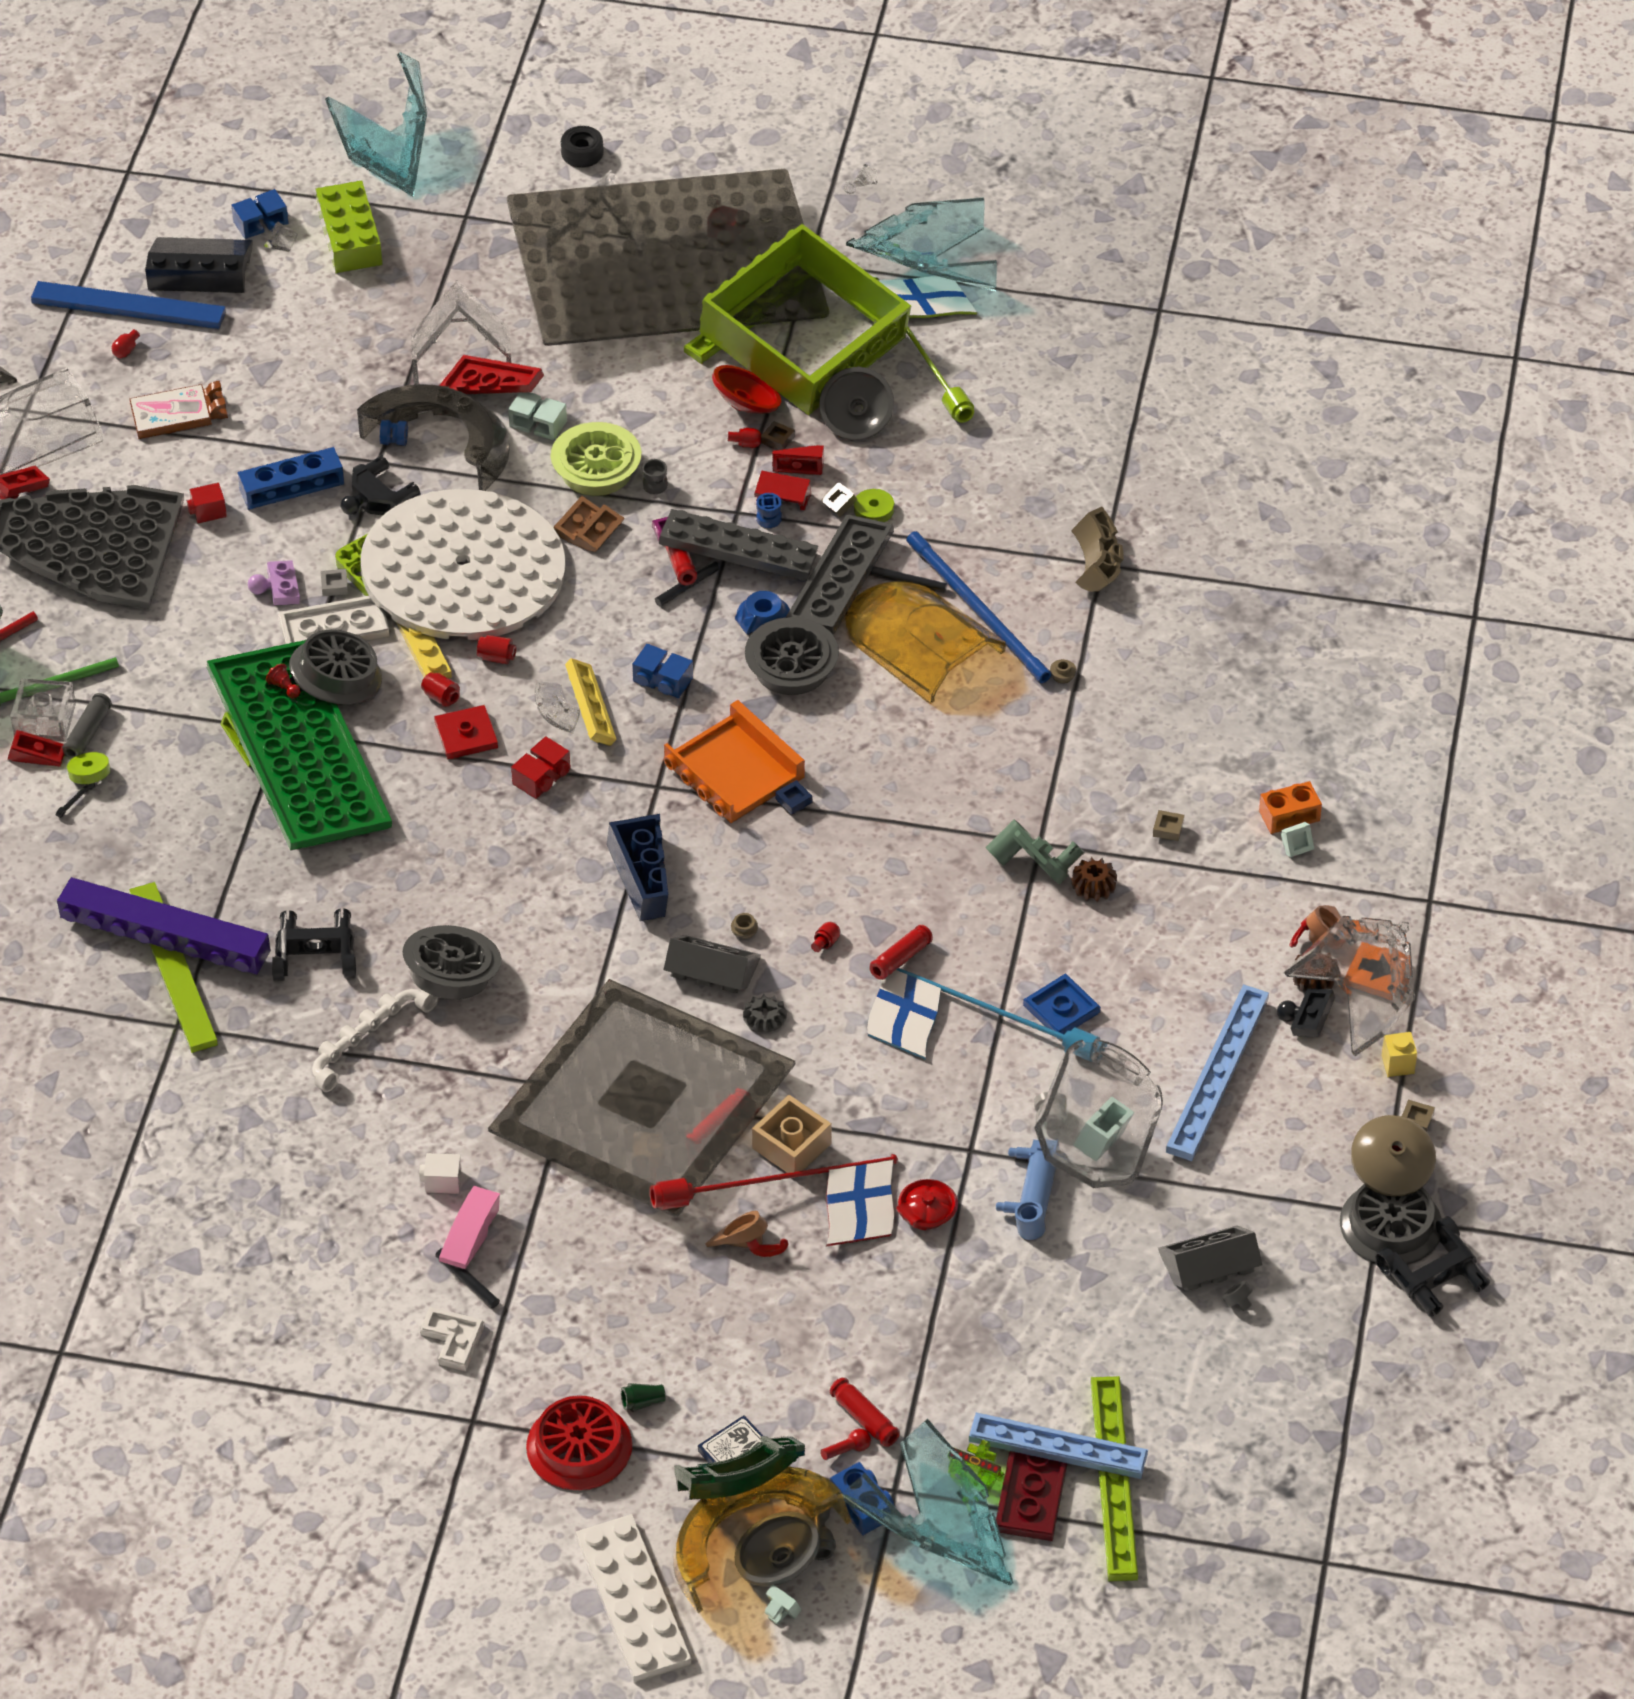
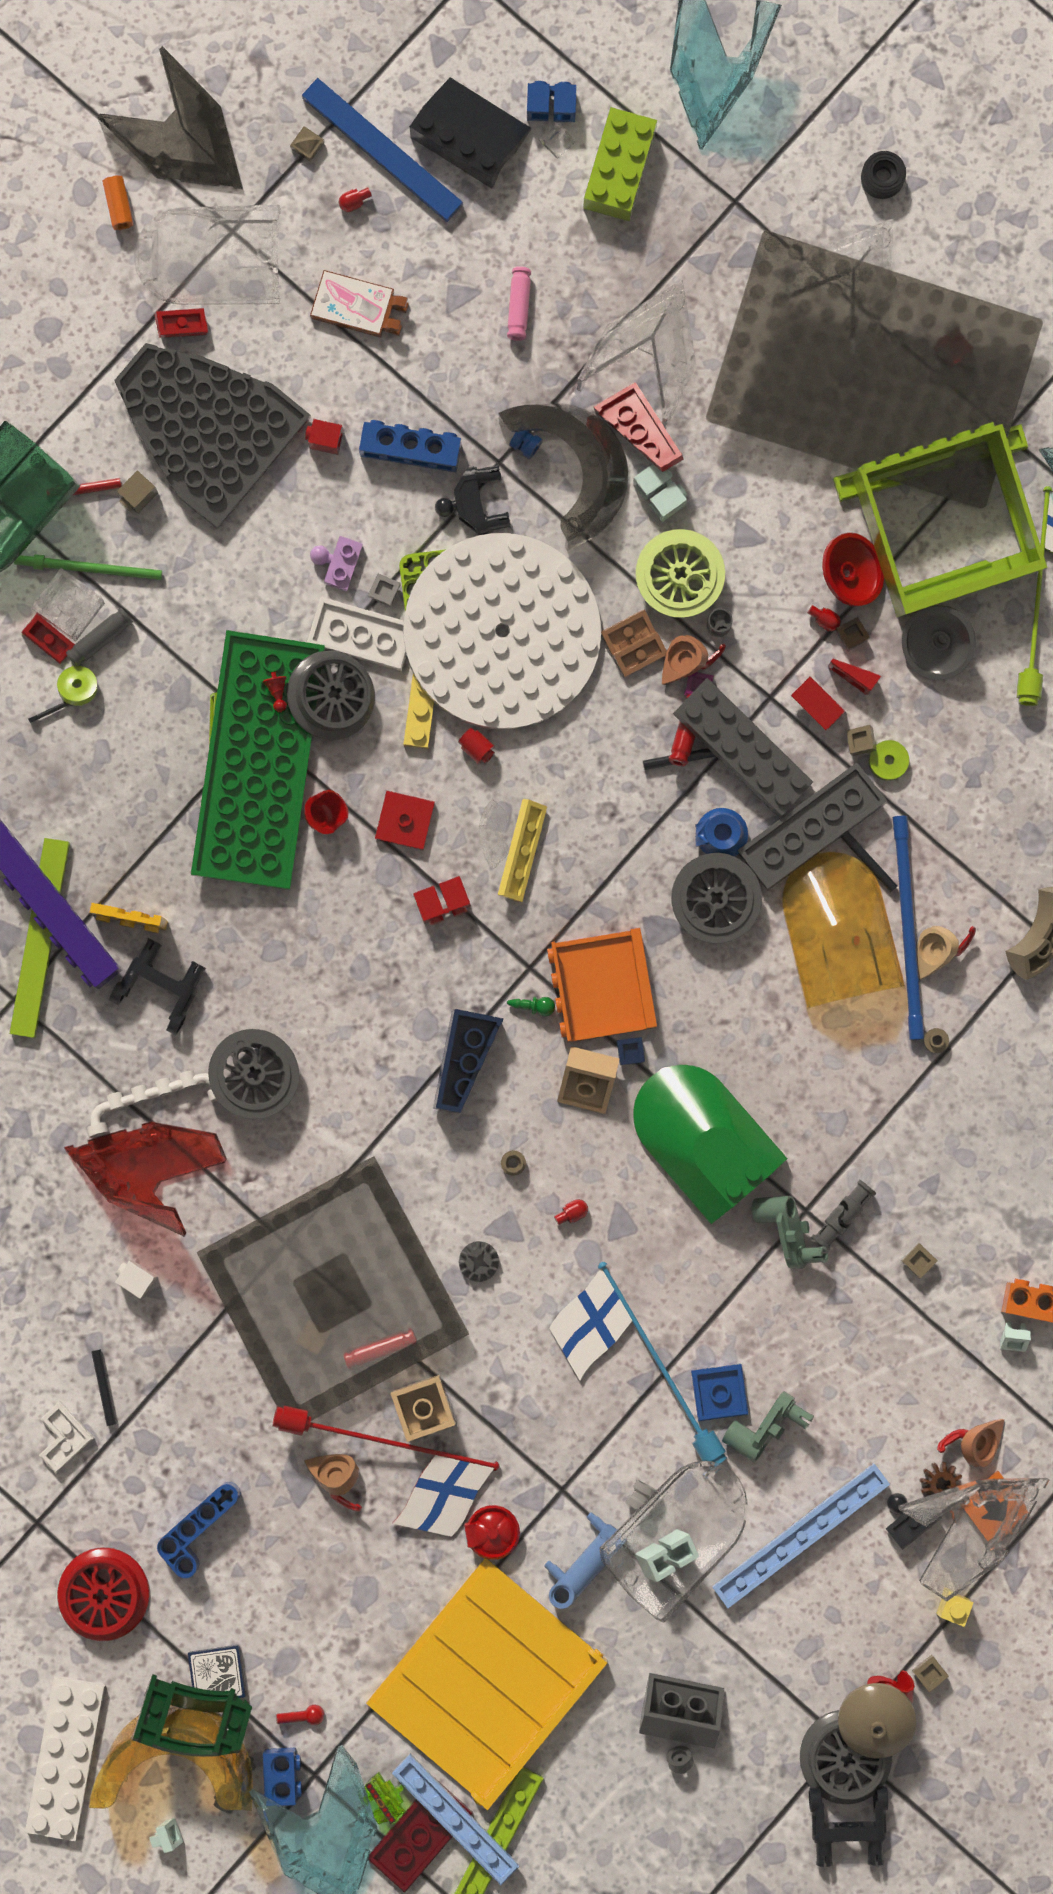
camera: 30 degrees right, 35 degrees up
(56, 611) = (136, 492): none -> dark tan brick
(57, 327) = (307, 143): none -> dark tan tile
(259, 903) = (128, 919): none -> yellow wing
(322, 349) = (519, 303): none -> bright pink axle
(387, 749) = (326, 812): none -> red helmet
(401, 1075) = (134, 1163): none -> clear red windscreen
(440, 689) = (407, 764): red brick -> none
(470, 1227) = (126, 1348): bright pink slope -> none
(637, 1332) = (201, 1523): none -> blue beam
(641, 1395) = (168, 1582): dark green cone -> none
(642, 508) = (686, 657): none -> nougat piece
(669, 677) = (592, 841): blue piece -> none
(690, 801) = (544, 1006): none -> green bar
(710, 963) = (465, 1187): dark grey slope -> none
(768, 510) = (791, 722): blue wheel -> none
(770, 834) = (588, 1080): none -> tan slope
(777, 1548) = (172, 1800): dark grey dish -> none
(864, 1412) = (330, 1697): red axle -> none
(901, 952) = (620, 1269): red axle -> none
(905, 831) = (703, 1138): none -> green windscreen
(1008, 1330) = (487, 1683): none -> yellow container
(1014, 604) = (938, 947): none -> tan piece
(1076, 818) = (846, 1211): none -> dark grey piece
(1094, 879) = (830, 1279): reddish brown gear -> none
(1122, 1018) = (753, 1444): none -> sand green piece

